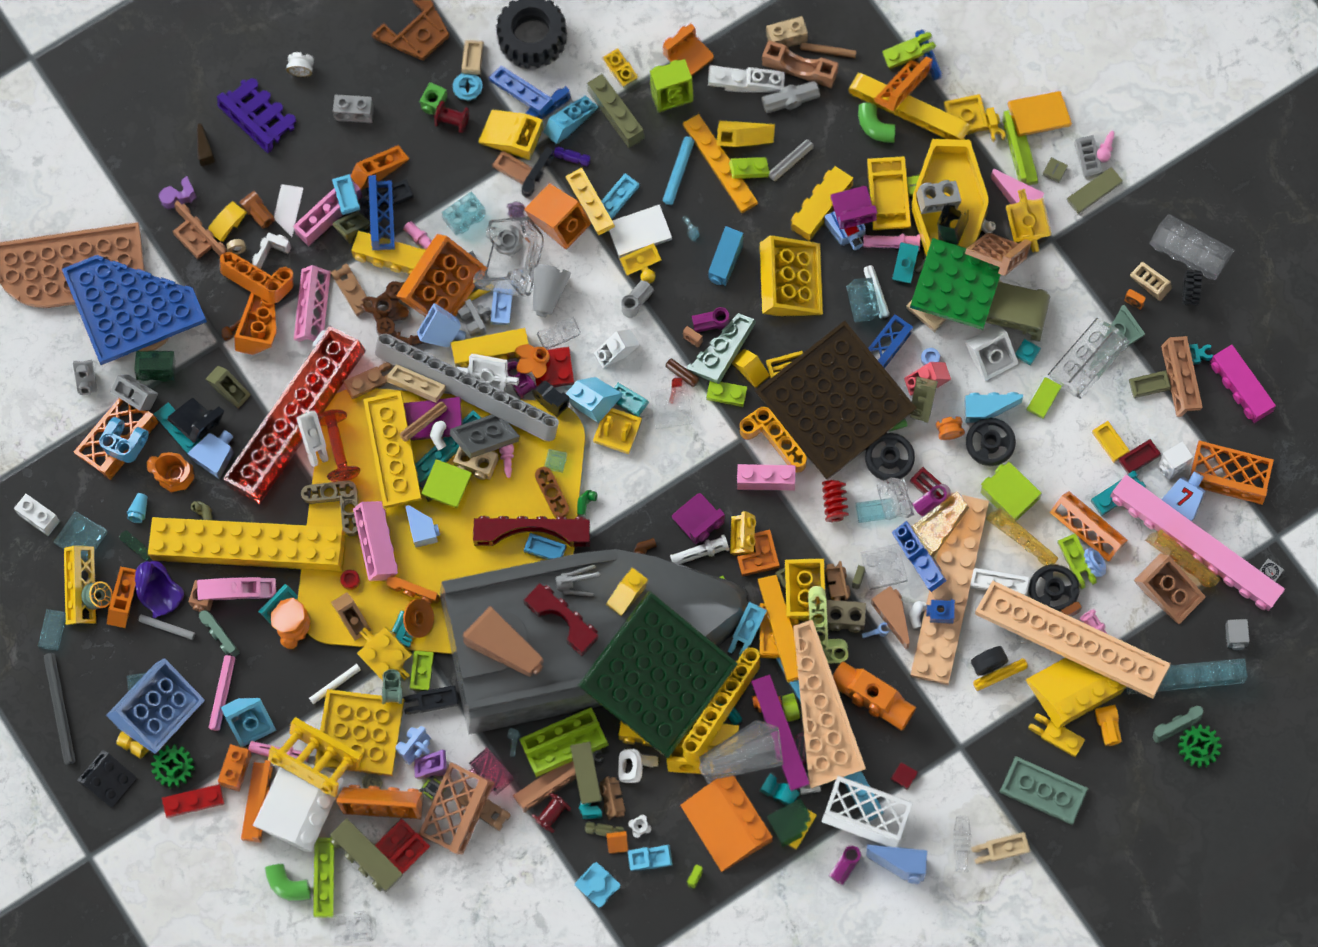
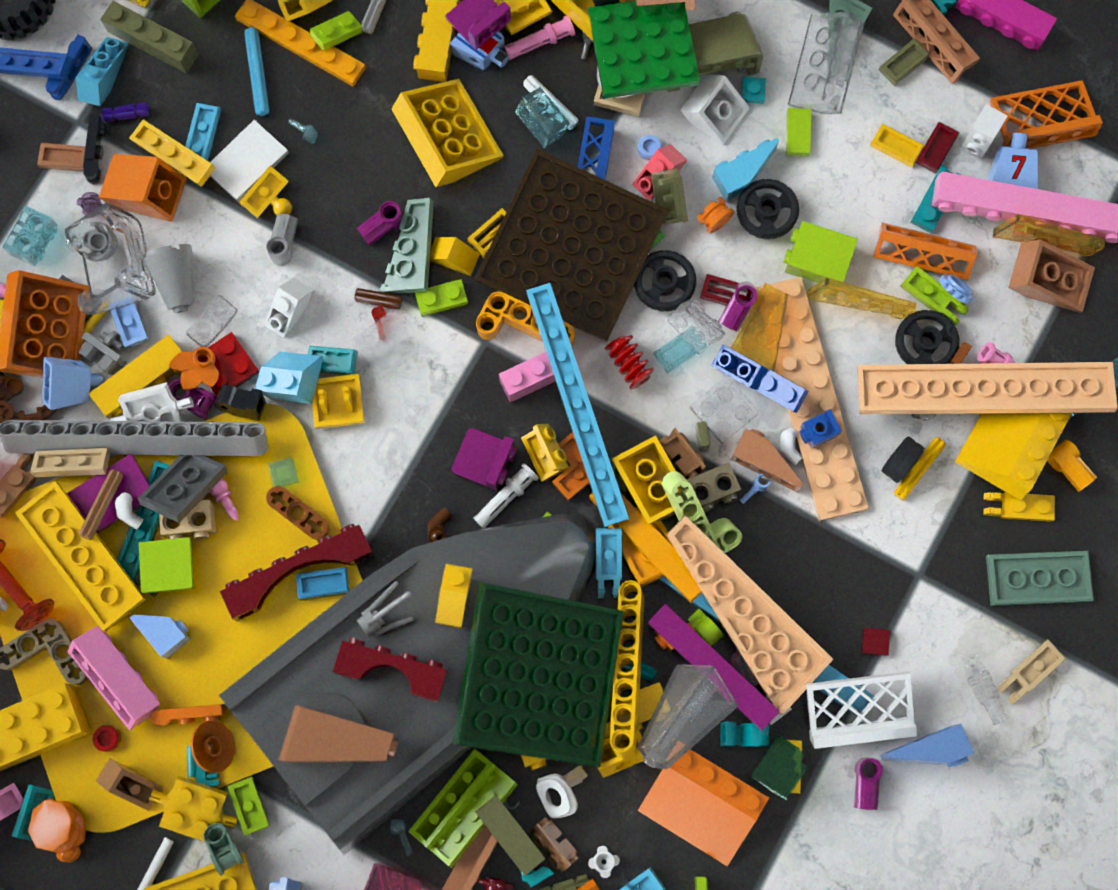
camera: 30 degrees left, 5 degrees up
(432, 700) = (280, 834): black hinge -> none
(512, 133) = (42, 117): yellow slope -> none
(584, 499) = (339, 503): green arm -> none
(692, 337) = (369, 251): nougat tile -> none
(726, 256) = (361, 141): dark azure slope -> none
(779, 511) = (577, 405): none -> medium azure plate
(888, 701) = (815, 566): orange brick -> none
(905, 262) = (567, 53): teal plate -> none
(983, 578) = (845, 367): white tile -> none

